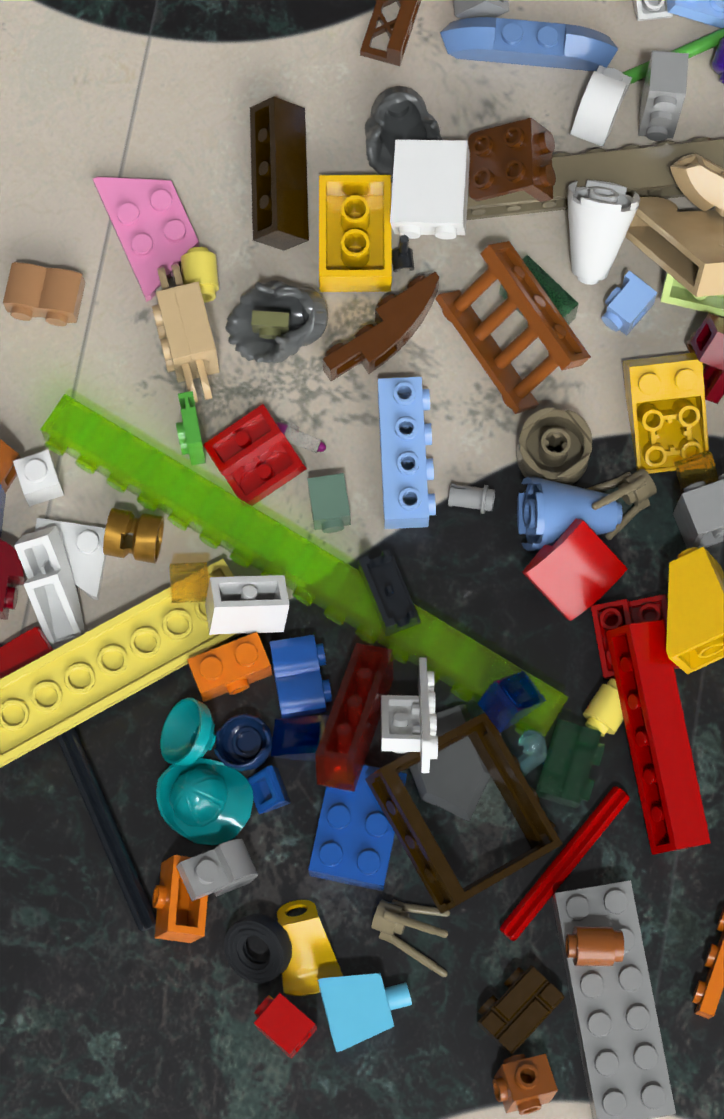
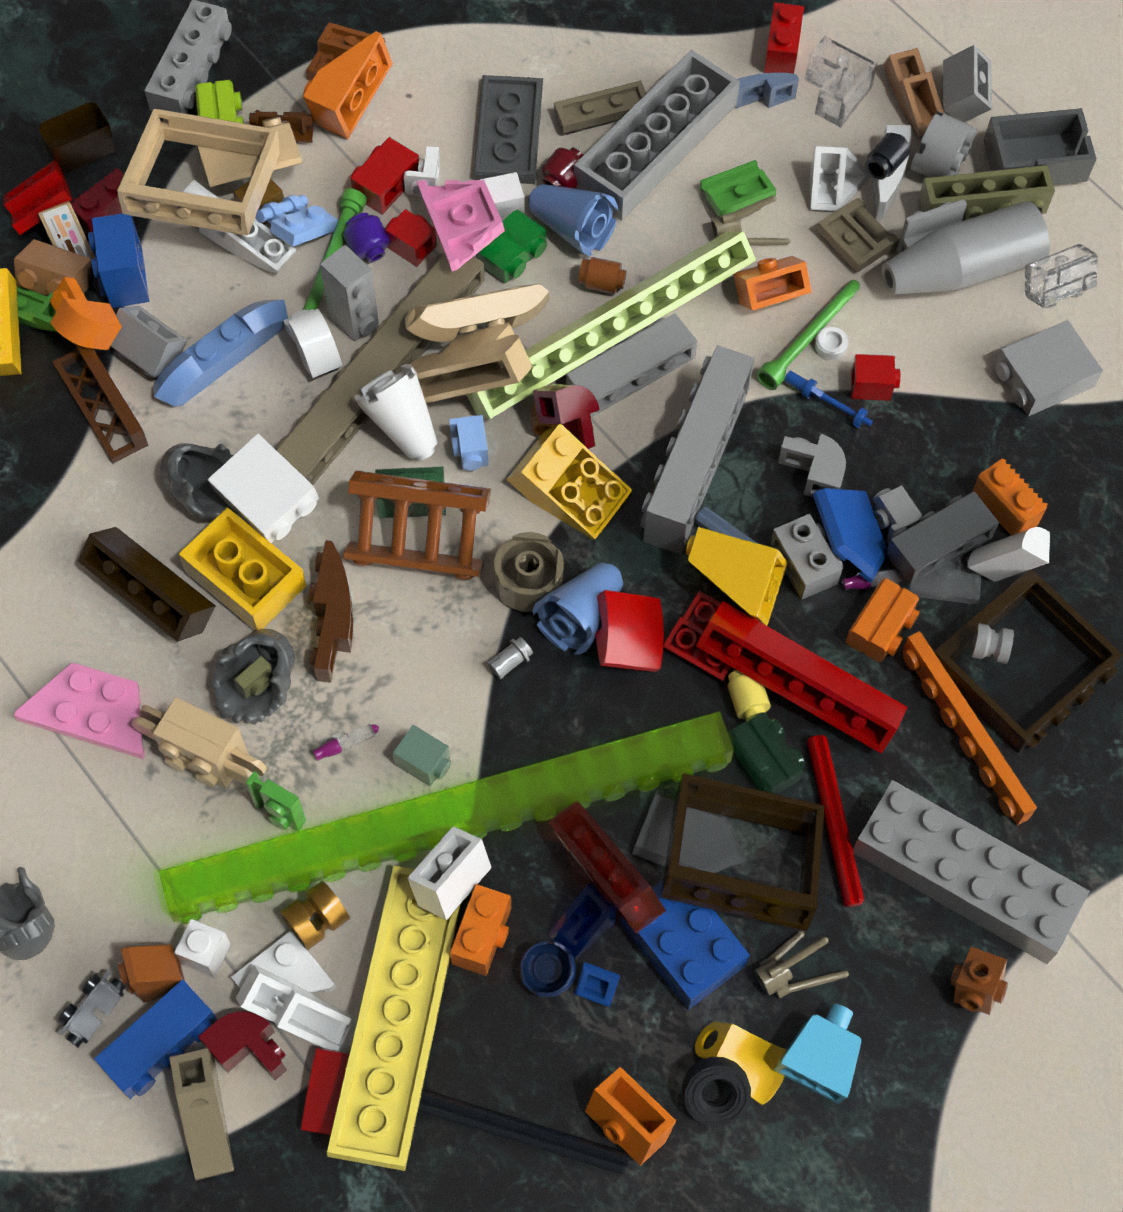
camera: 50 degrees left, 10 degrees down
(44, 293) = (64, 824): medium nougat brick -> none
(187, 732) = (495, 1007): teal piece -> none
(188, 582) = (391, 903): clear yellow tile -> none
(201, 266) = (158, 694): light yellow brick -> none
(204, 801) = (565, 1037): teal hat -> none
(218, 870) = (633, 1068): light grey brick -> none
(254, 456) = (337, 777): red slope -> none
(284, 1024) = (794, 1119): red brick -> none
(299, 676) = (533, 887): blue brick -> none
(388, 593) = (533, 767): black hinge -> none
(403, 256) = (289, 551): black hand -> none
(404, 453) = (435, 674): light blue brick -> none
(411, 721) = (649, 825): white bracket -> none
(510, 700) = (691, 750): clear blue slope -> none
(511, 161) = (299, 422): reddish brown bracket -> none
(520, 1008) = (920, 940): dark brown brick -> none
(534, 751) = (737, 767): clear light blue arm -> none
(595, 946) = (925, 839): dark orange brick -> none
(632, 488) = (604, 549): dark tan plant -> none
(696, 469) = (630, 500): clear yellow tile -> none

